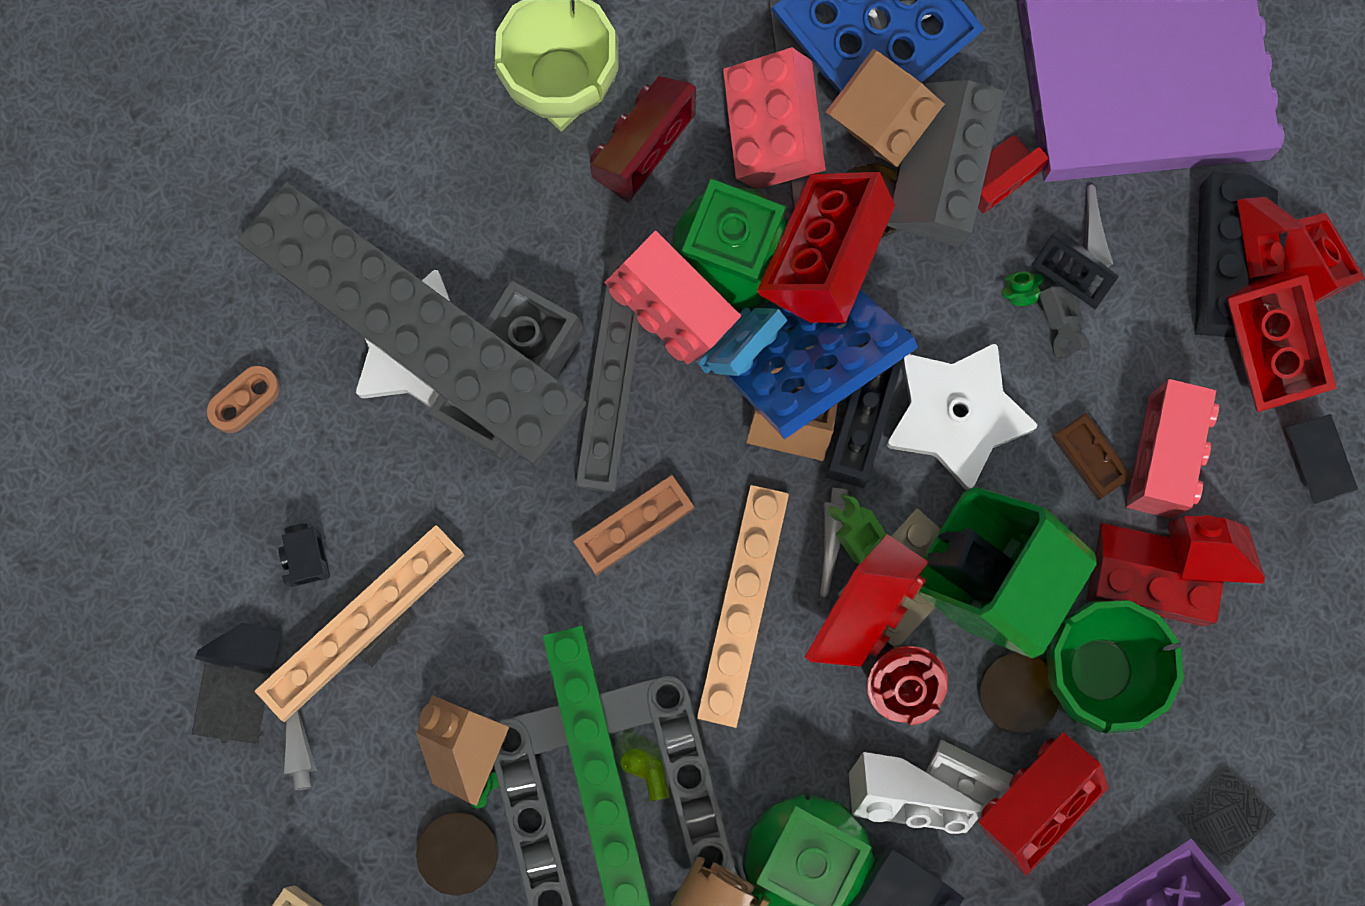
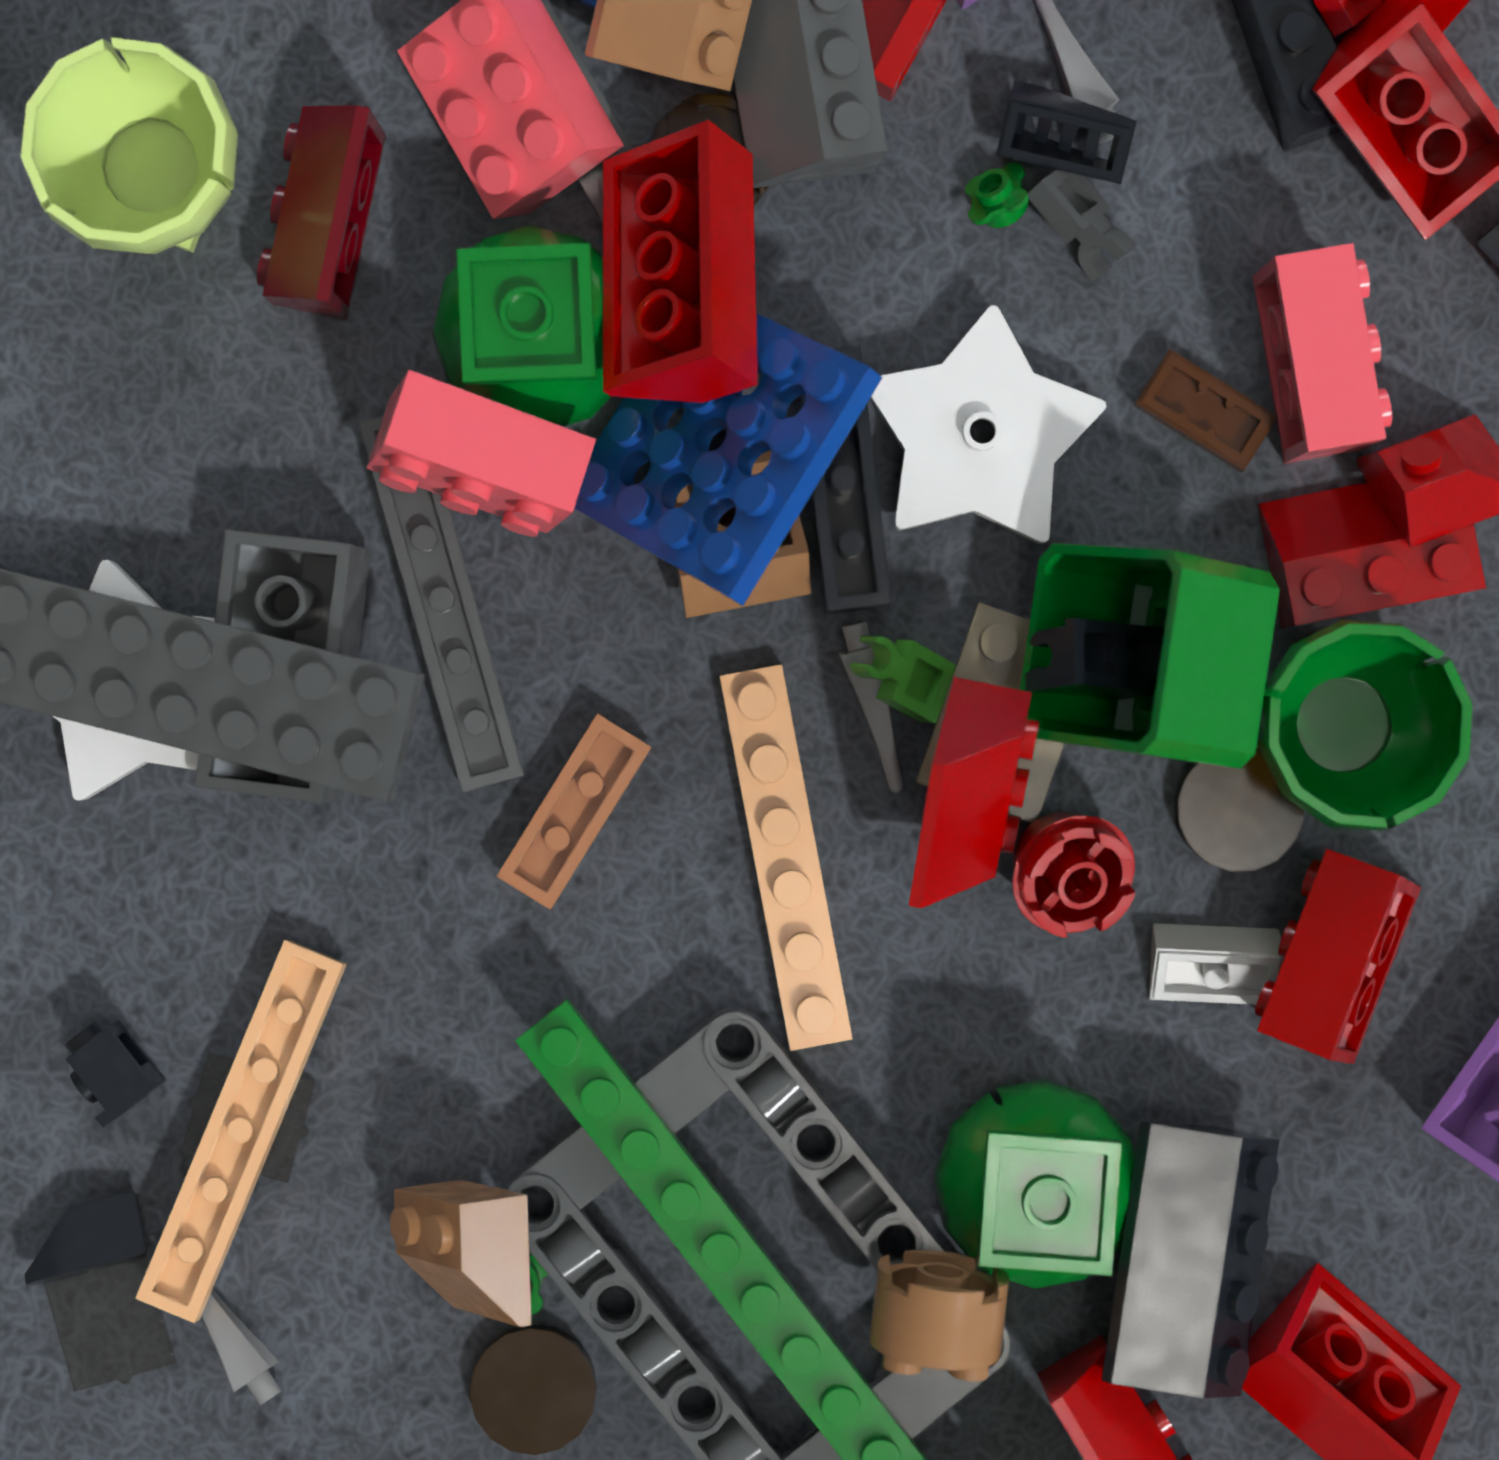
camera: 15 degrees left, 10 degrees up
(647, 768) = (752, 1152): clear neon green arm -> none
(743, 342) = (617, 475): dark azure plate -> none
(902, 793) = (1129, 1030): white slope -> none

